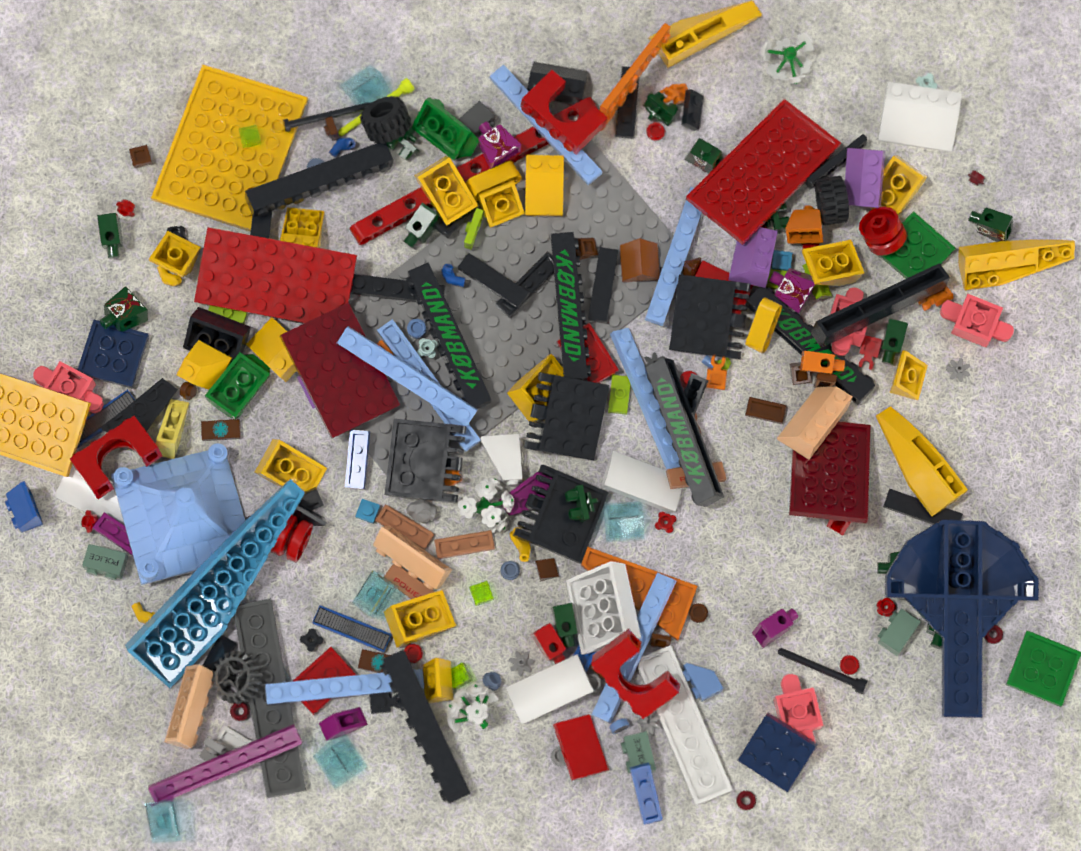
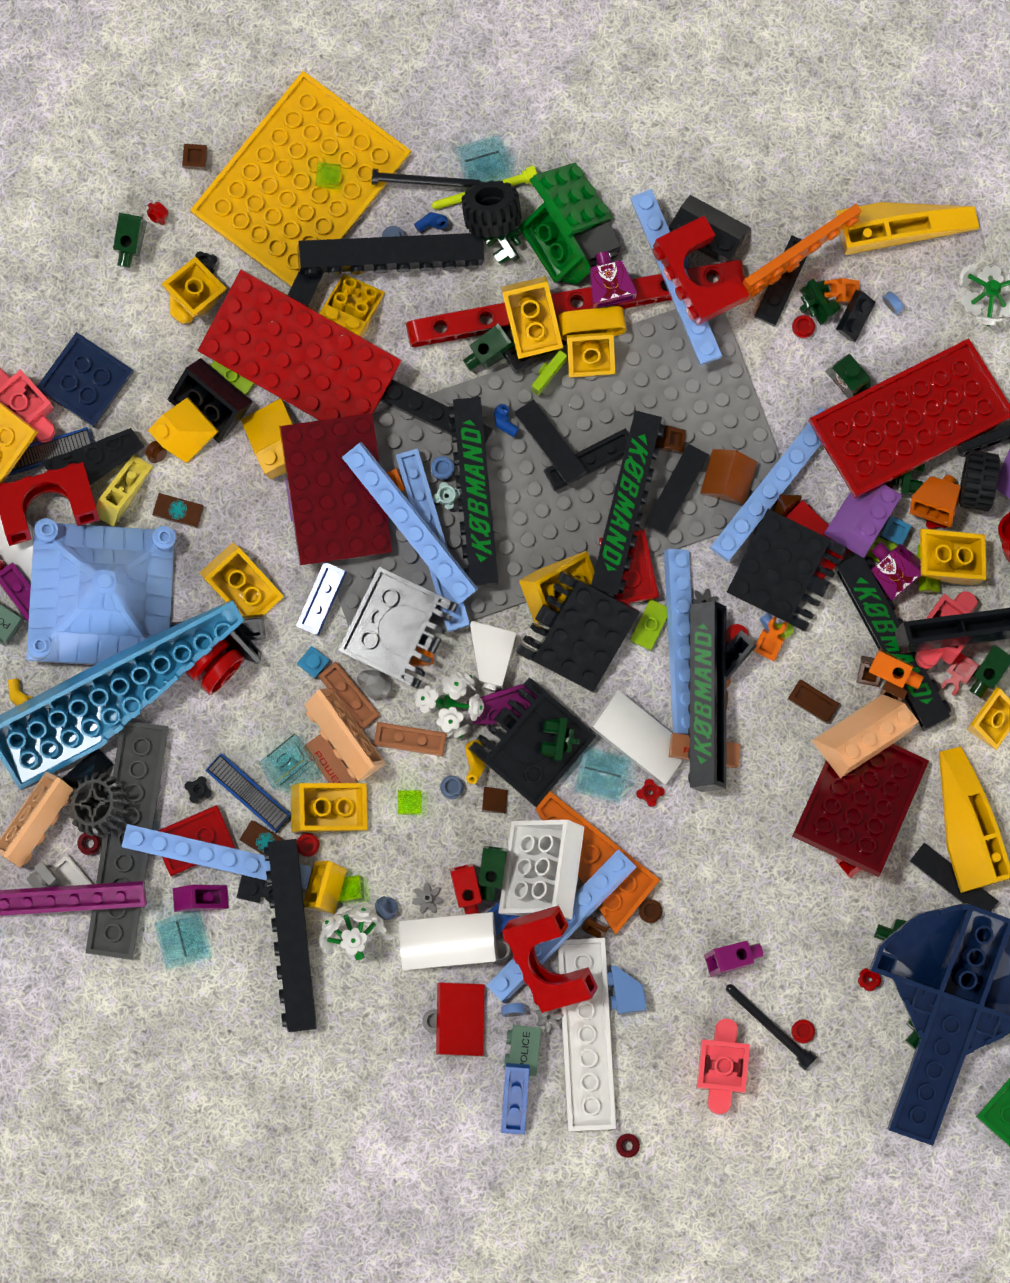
camera: 20 degrees right, 5 degrees up
(124, 311) = (113, 335): dark green torso -> none
(238, 385) = (215, 465): green slope -> none
(330, 129) = (424, 198): reddish brown plate -> none
(444, 92) = (571, 198): none -> green plate
(544, 185) = (649, 349): yellow slope -> none
(717, 91) = (892, 302): none -> medium blue tile
(763, 325) = (845, 601): yellow beam -> none
(777, 752) = (682, 1104): dark blue plate -> none
(898, 632) = (872, 1013): sand green brick -> none
(999, 634) = (989, 1057): dark red plate -> none

